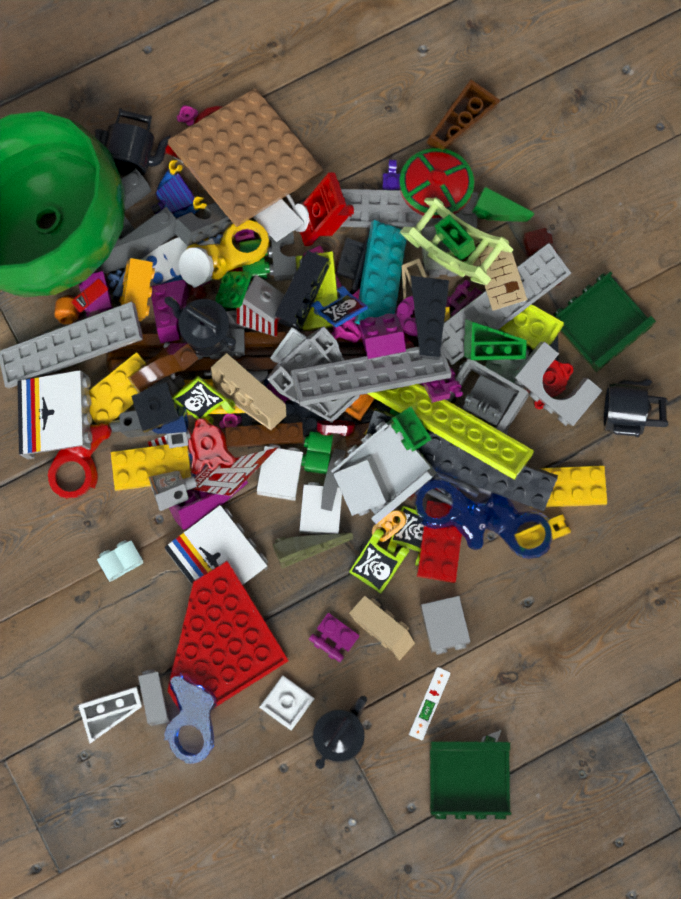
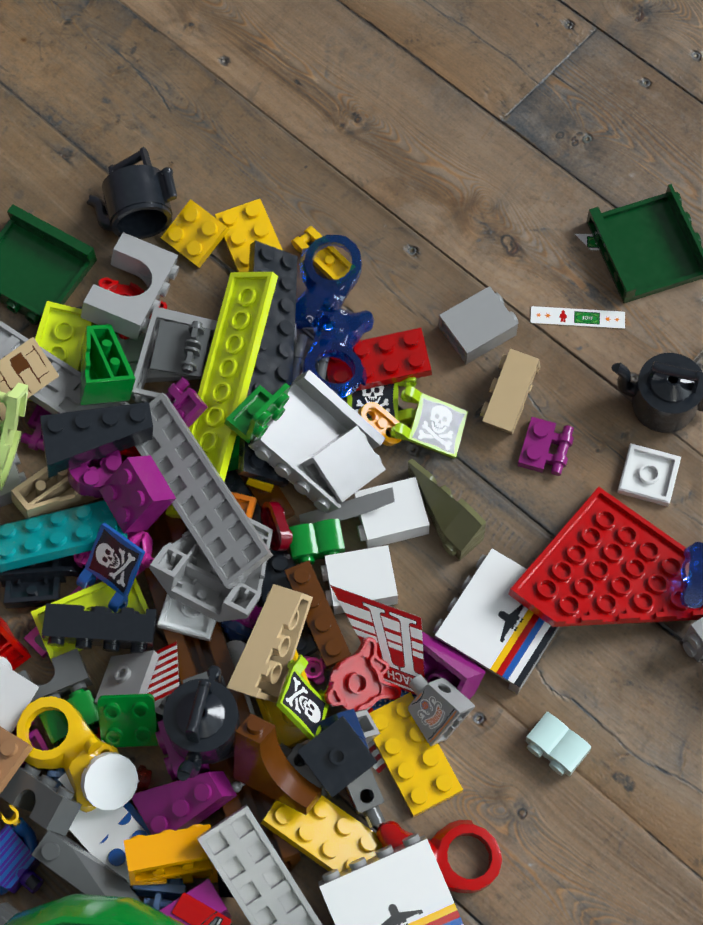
camera: 105 degrees left, 10 degrees down
(591, 446) = (195, 233): none -> yellow plate

